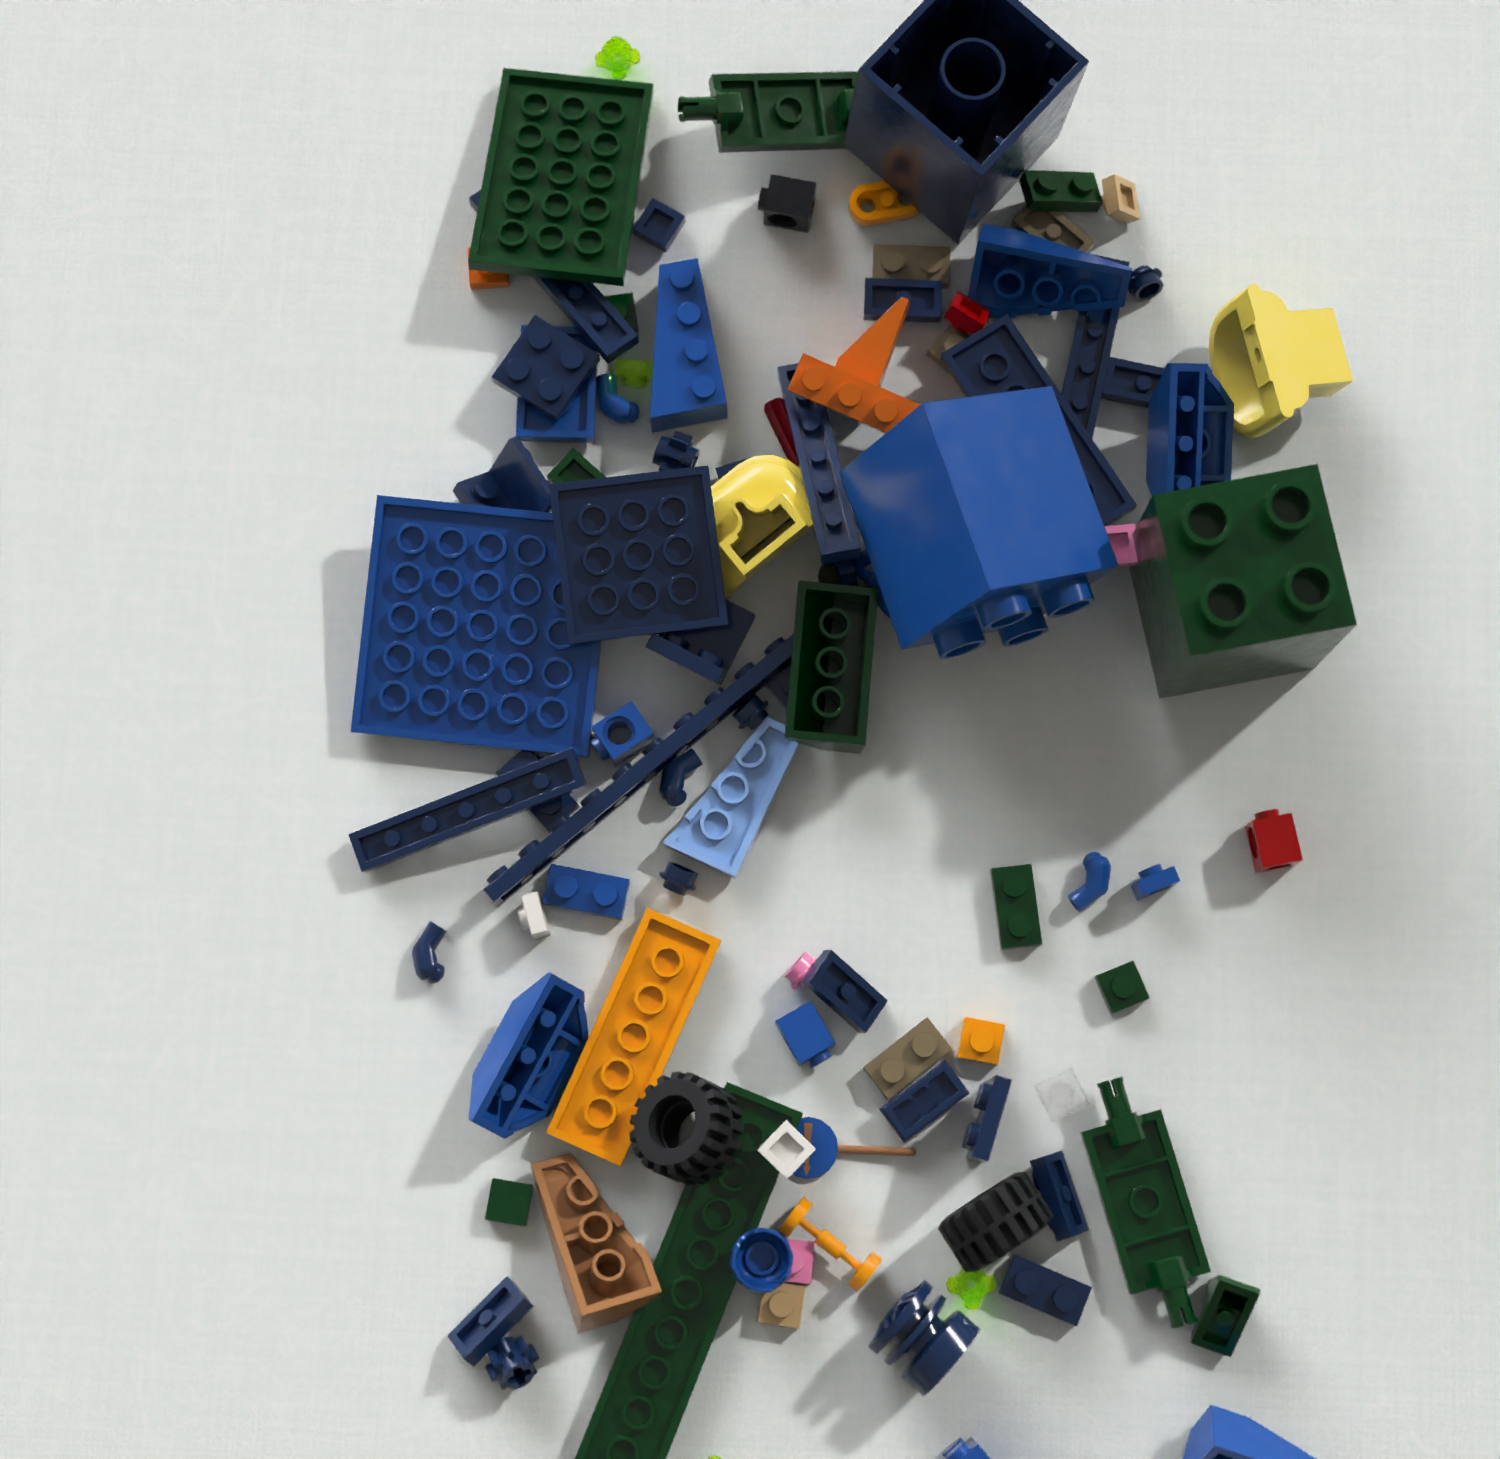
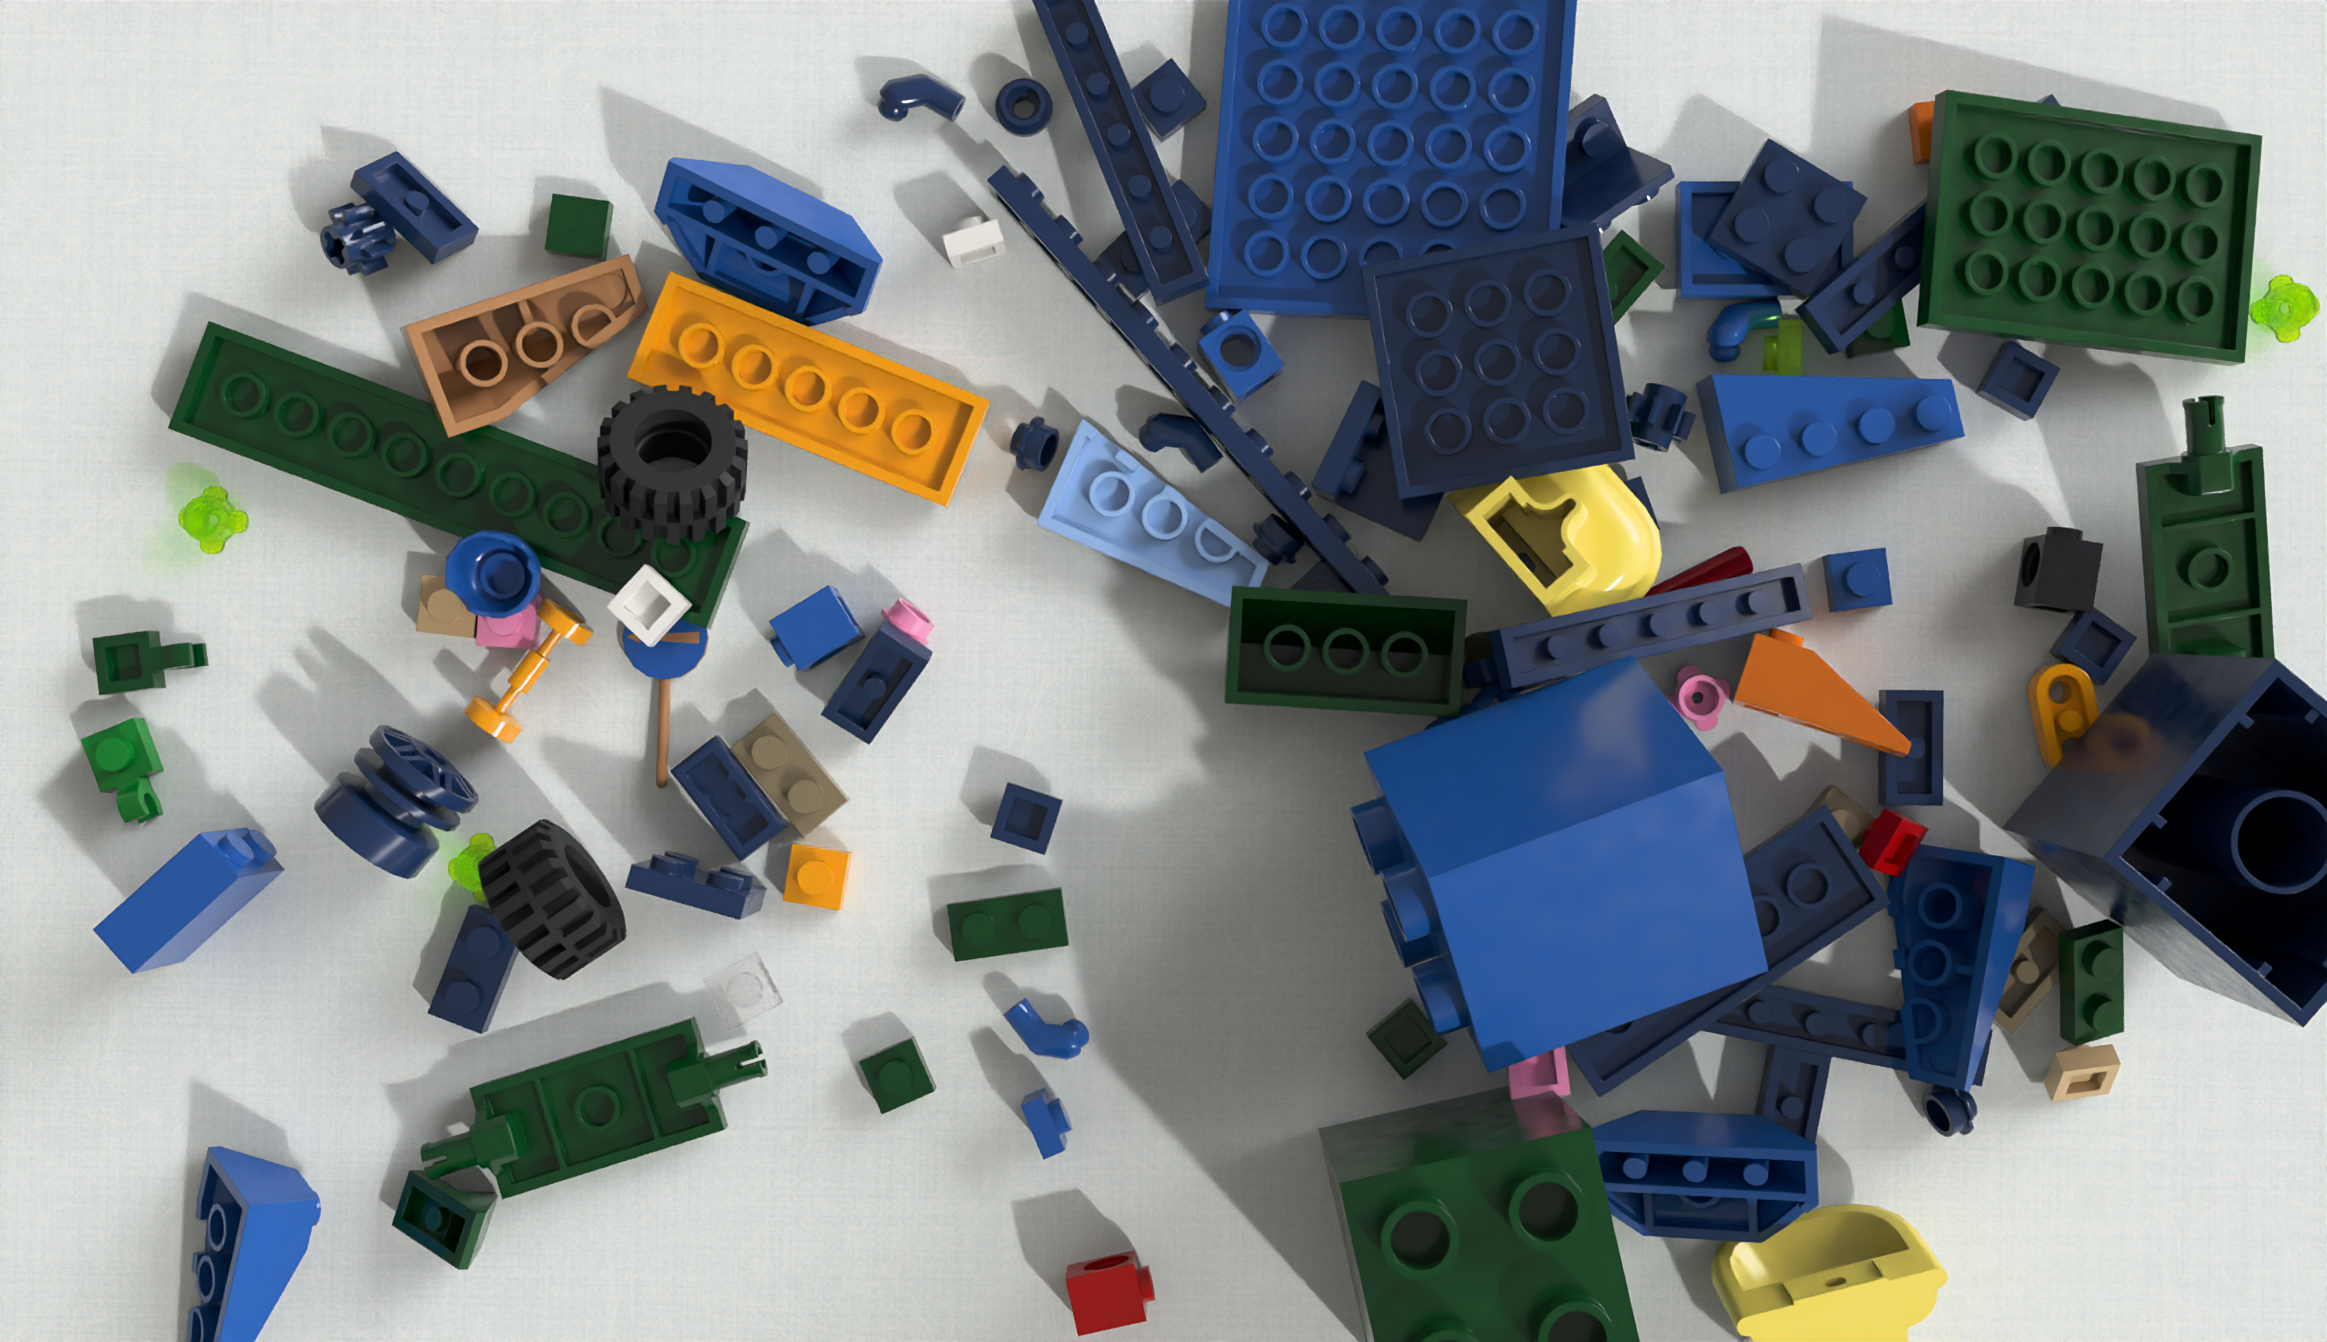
camera: 85 degrees right, 10 degrees up
(439, 778) = (1168, 100): none -> dark blue plate
(439, 867) = (1018, 91): none -> dark blue plate
(586, 891) = (1013, 315): blue plate -> none
(789, 331) = (1857, 580): none -> blue plate
(837, 183) = (2093, 645): none -> dark blue plate
(849, 394) = (1753, 676): orange plate -> none
(855, 439) = (1713, 695): none -> bright pink plate
(912, 263) = (1970, 760): dark tan plate -> none
(941, 890) = (1026, 818): none -> dark blue plate
(1057, 1189) = (602, 988): dark blue plate -> none
(1097, 636) = (1406, 1039): none -> dark green tile

